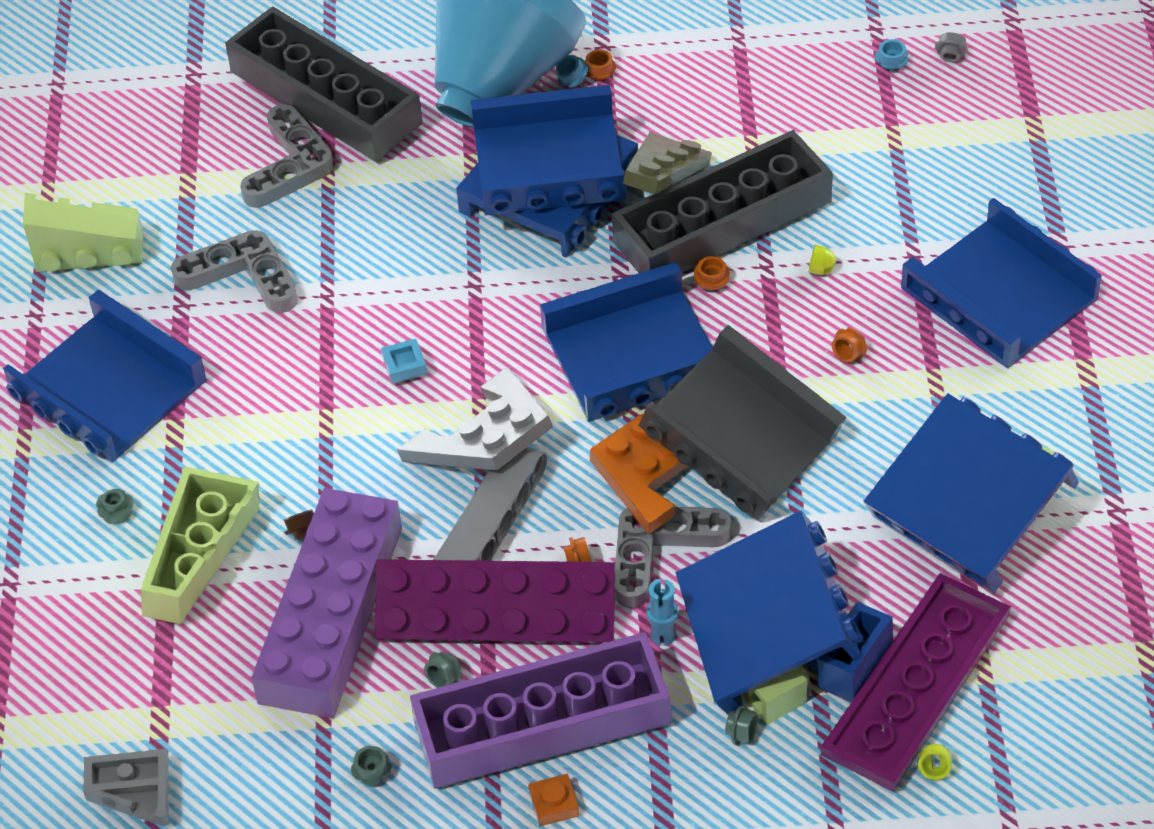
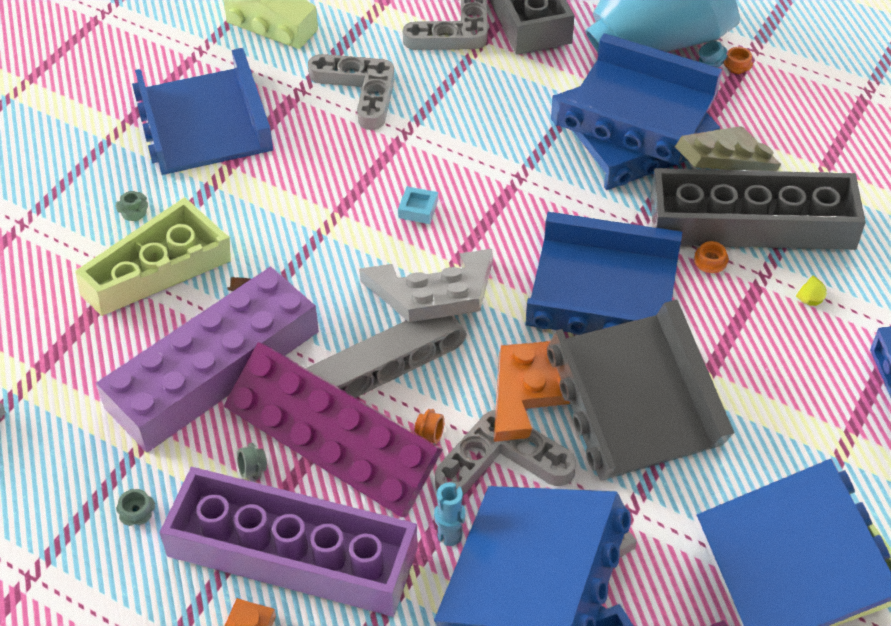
camera: 30 degrees right, 0 degrees up
(849, 345) = (786, 373): orange plate -> none

